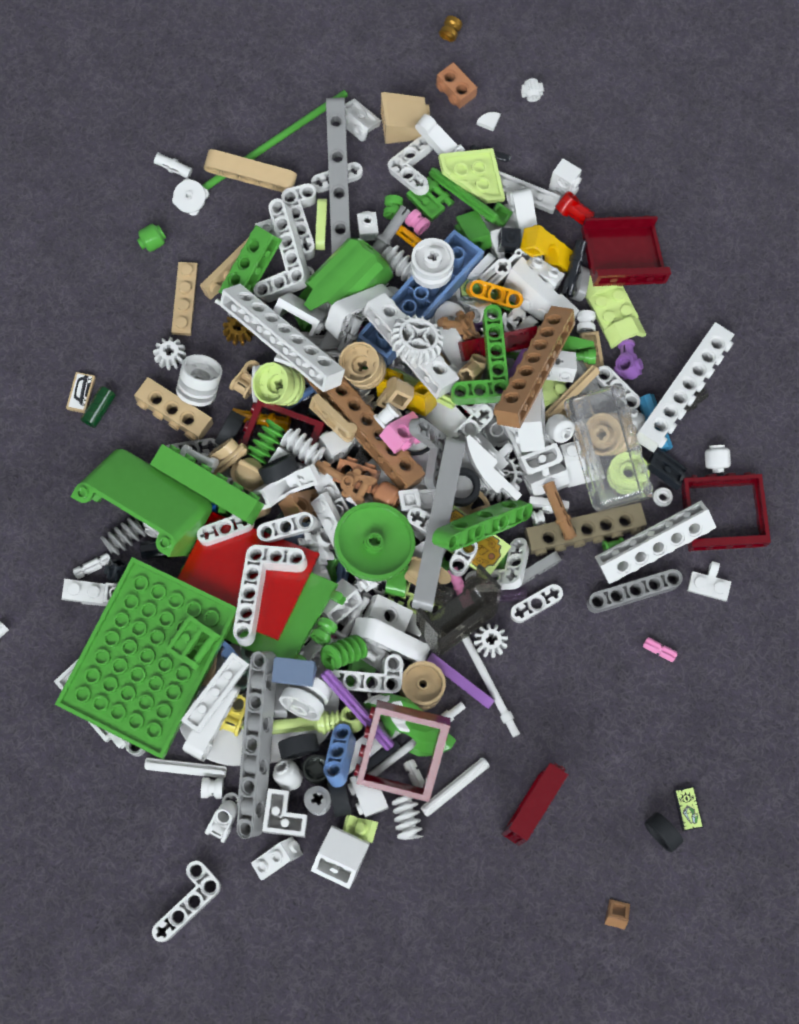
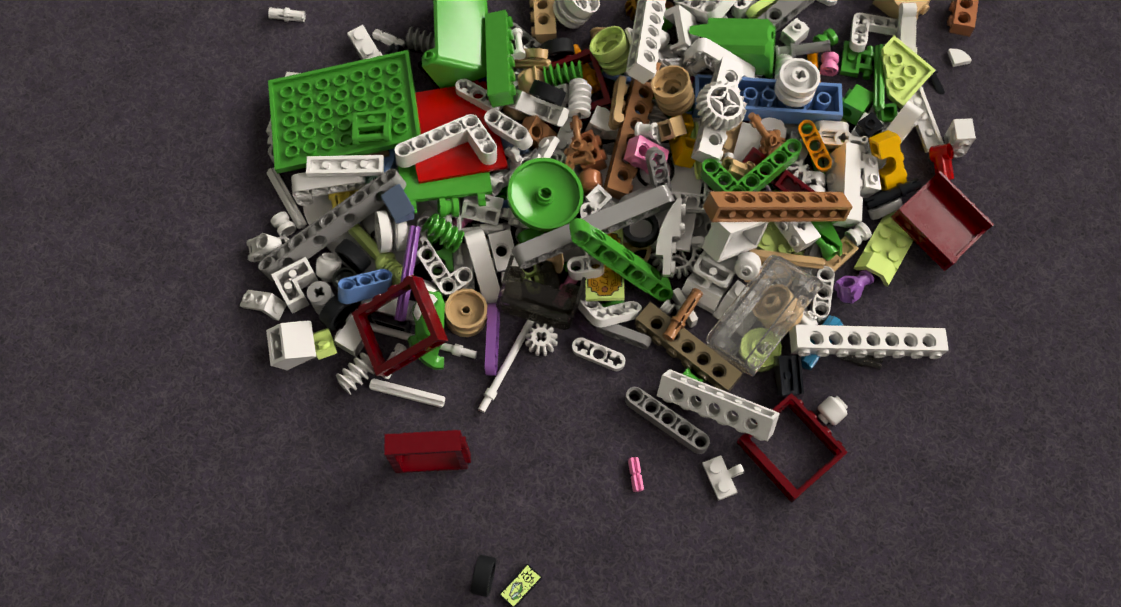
camera: 60 degrees right, 5 degrees down
(184, 904) = (161, 265): white beam -> none
(532, 90) = (1012, 67): white gear -> none
(617, 914) = (394, 586): medium nougat slope -> none
(665, 491) = (764, 397): white plate -> none

